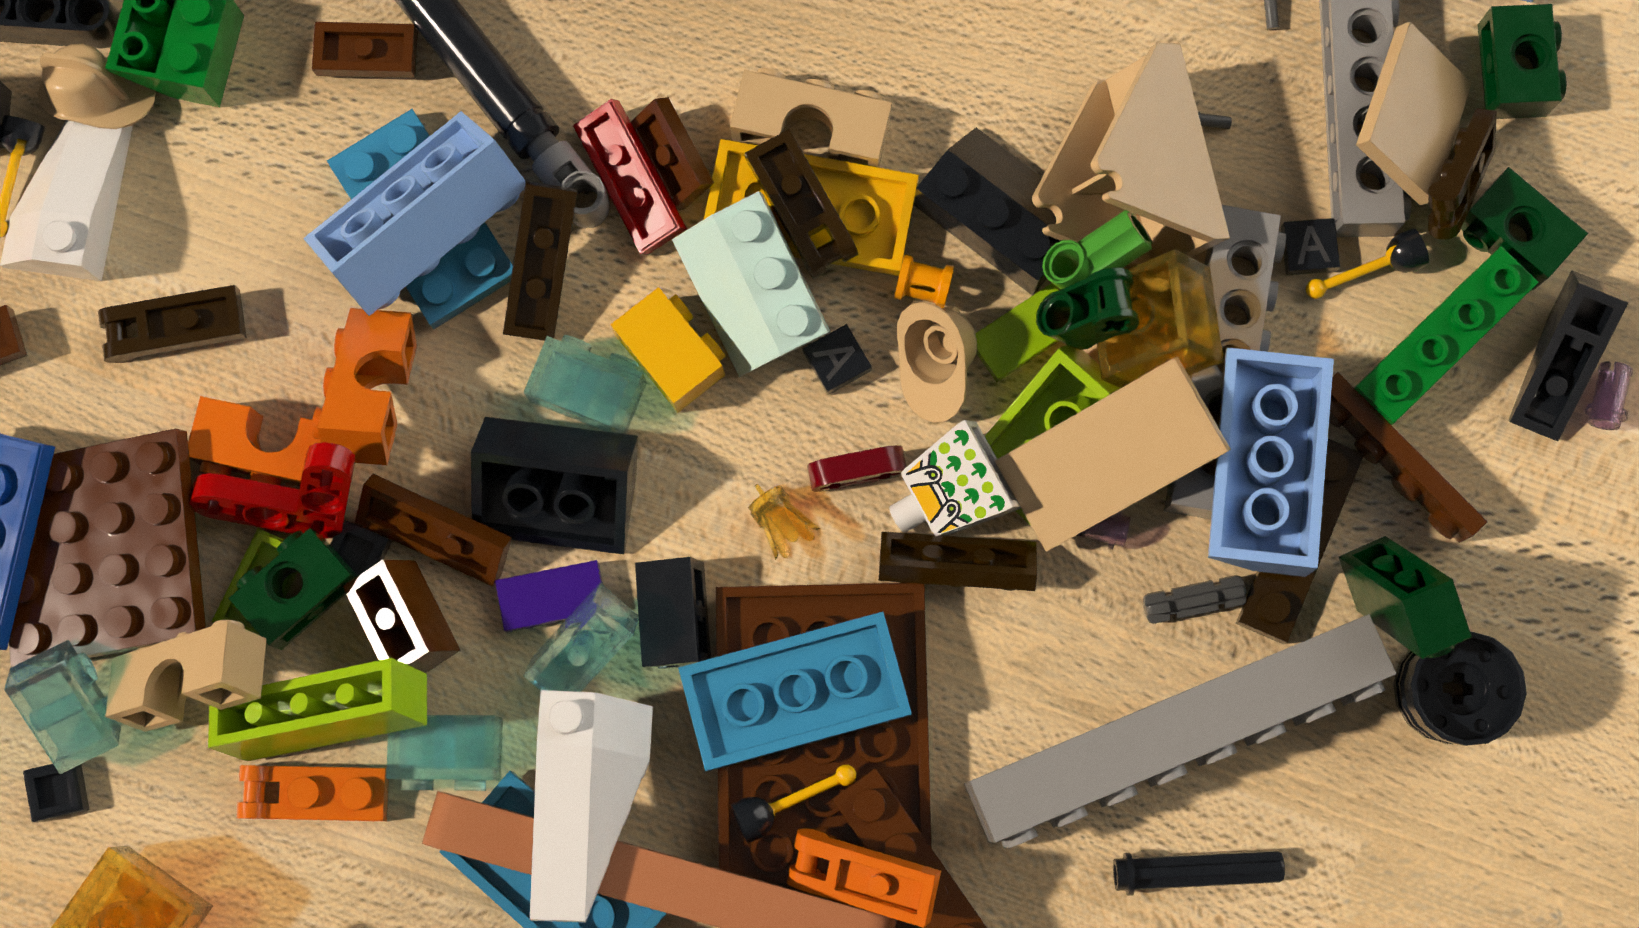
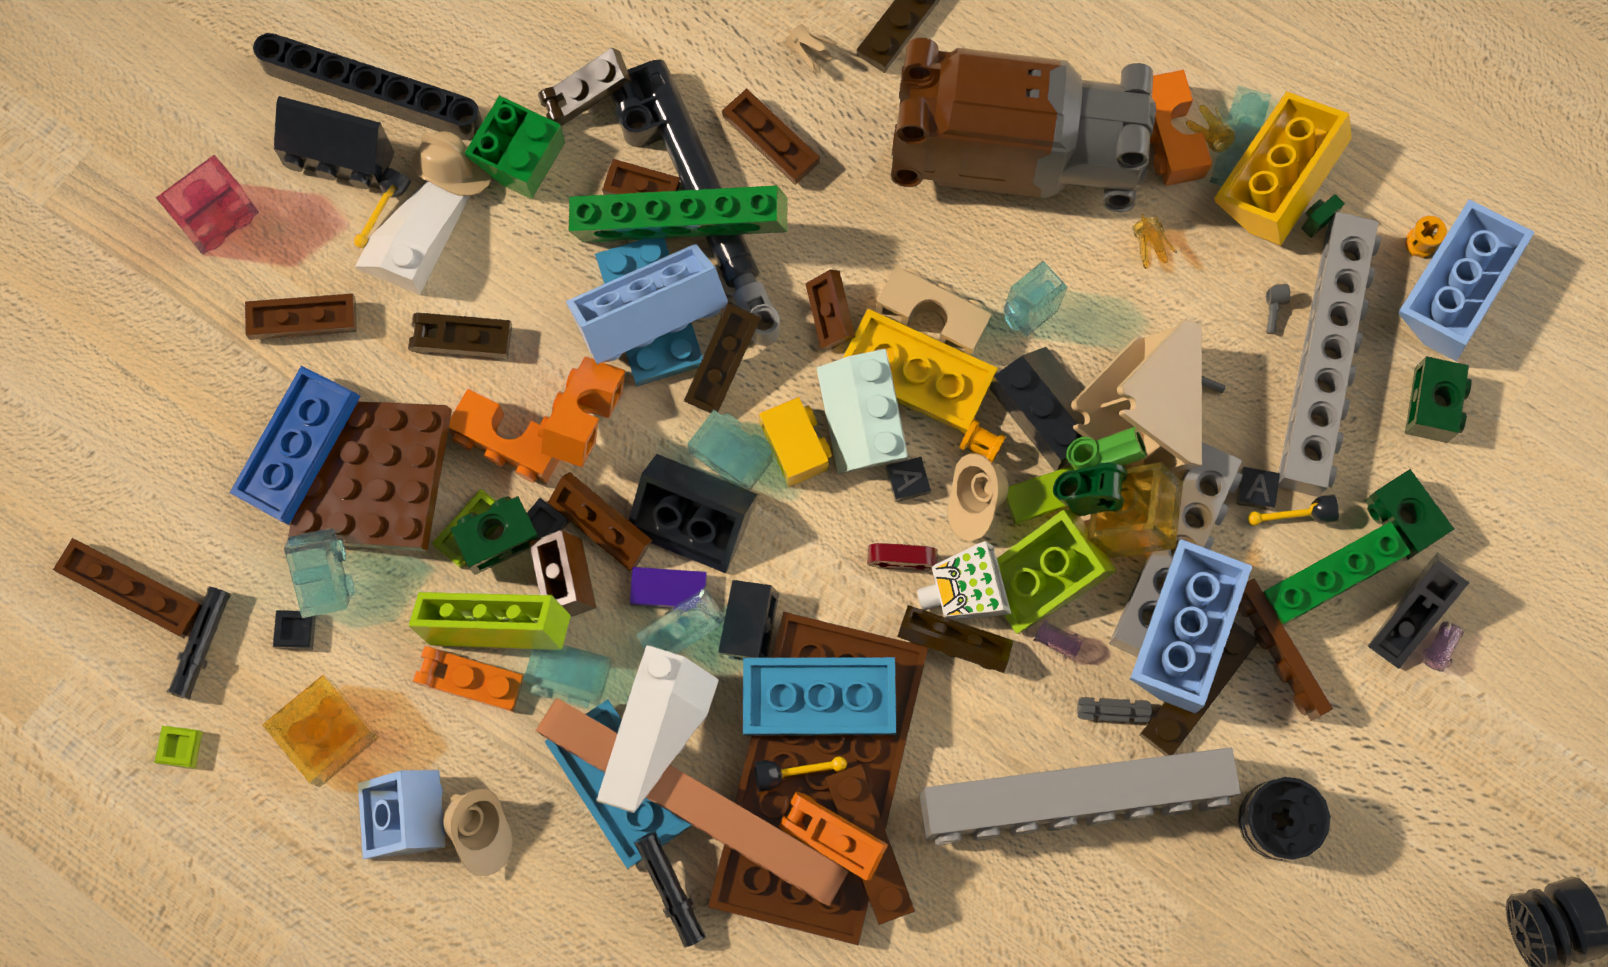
camera: 10 degrees right, 5 degrees down
(210, 665) = (427, 569): tan arch -> none
(316, 505) = (502, 479): red beam -> none
(425, 76) = (678, 214): none -> green brick
(629, 177) = (798, 318): red tile -> none
(780, 520) = (839, 575): clear yellow piece -> none
(800, 202) = (911, 365): dark brown plate -> none
(943, 67) = (1034, 299): none -> clear light blue brick
(1112, 454) = (1081, 591): tan tile -> none
(1197, 870) = (1067, 898): black axle -> none
(1406, 597) = (1261, 744): dark green brick -> none
(1414, 112) = (1353, 415): tan tile -> none
(1462, 175) = (1376, 466): dark brown plate -> none

